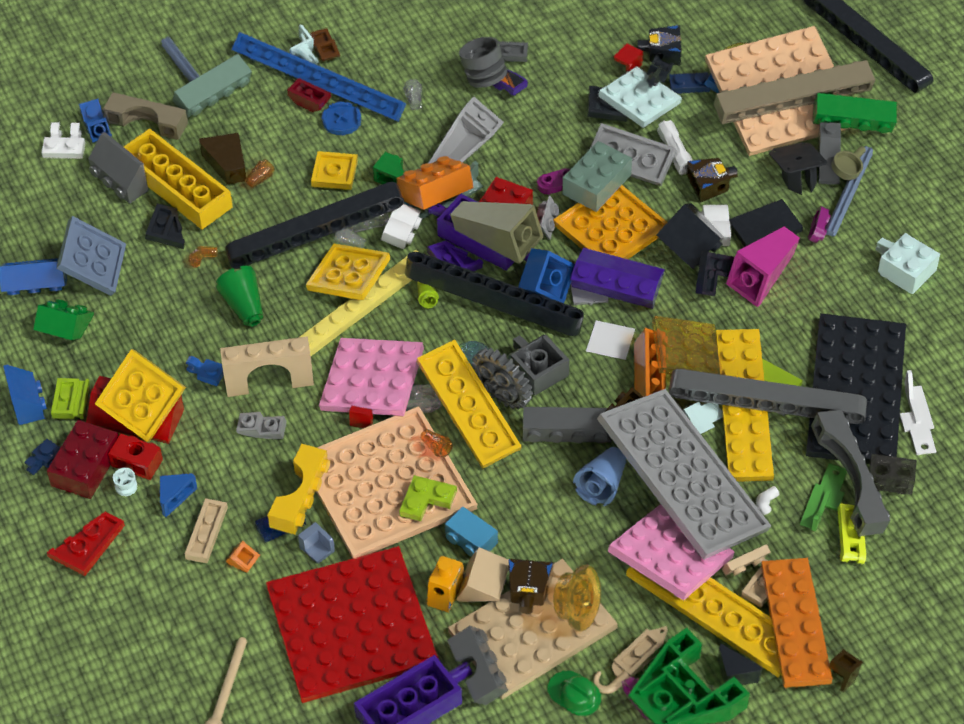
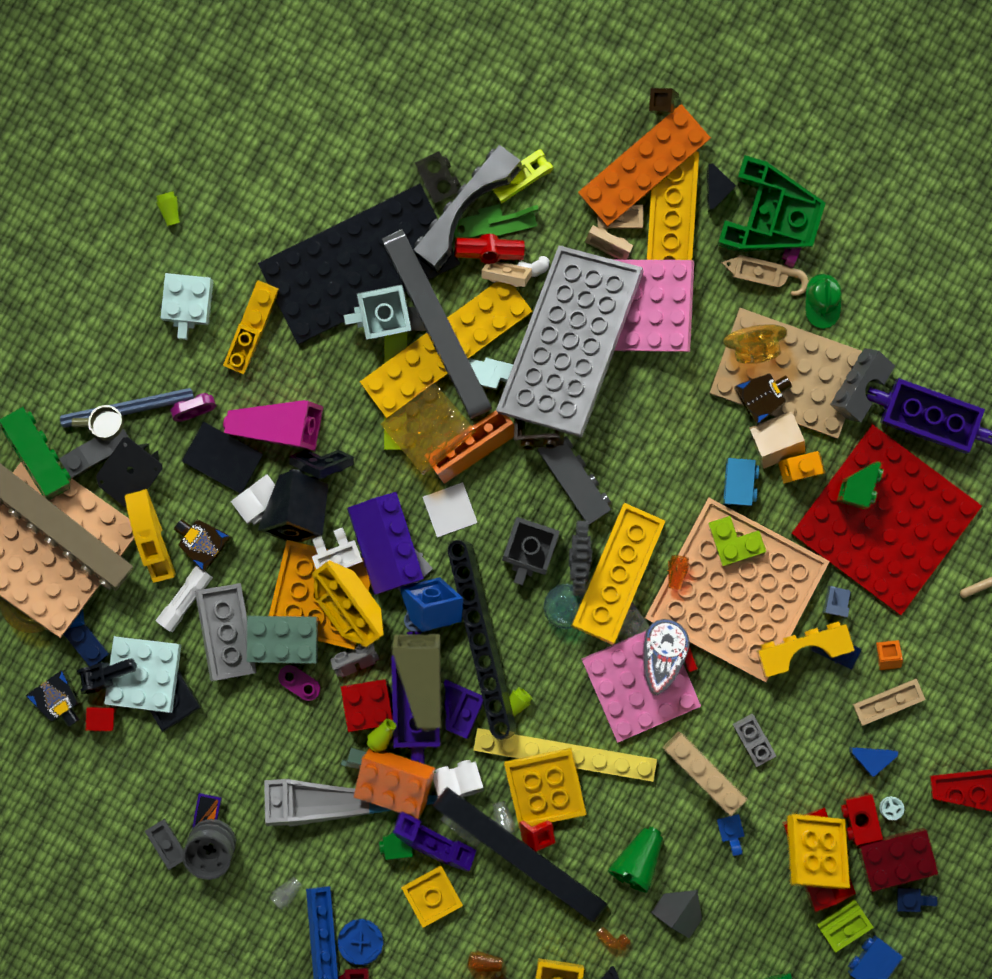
camera: 125 degrees left, 35 degrees up
(180, 300) = (680, 911): none -> dark grey slope
(317, 244) = (538, 835): none -> red panel
(380, 387) = (663, 654): none -> shield
(391, 169) = (433, 844): none -> dark purple slope
(393, 599) = (859, 487): none -> green slope
(474, 190) = (380, 737): none -> lime cone
(591, 227) = (347, 603): none -> yellow wedge
(601, 477) = (613, 412): medium blue cone -> none
(630, 241) = (345, 554): none -> white plate
(744, 143) = (148, 536): none -> yellow slope
(774, 473) = (507, 273): none -> tan plate
(804, 364) = (381, 312): none -> light aqua hinge
(804, 474) = (489, 248): none -> red piece
(853, 290) = (251, 327): none -> yellow slope
(919, 420) = (357, 192): white piece -> none

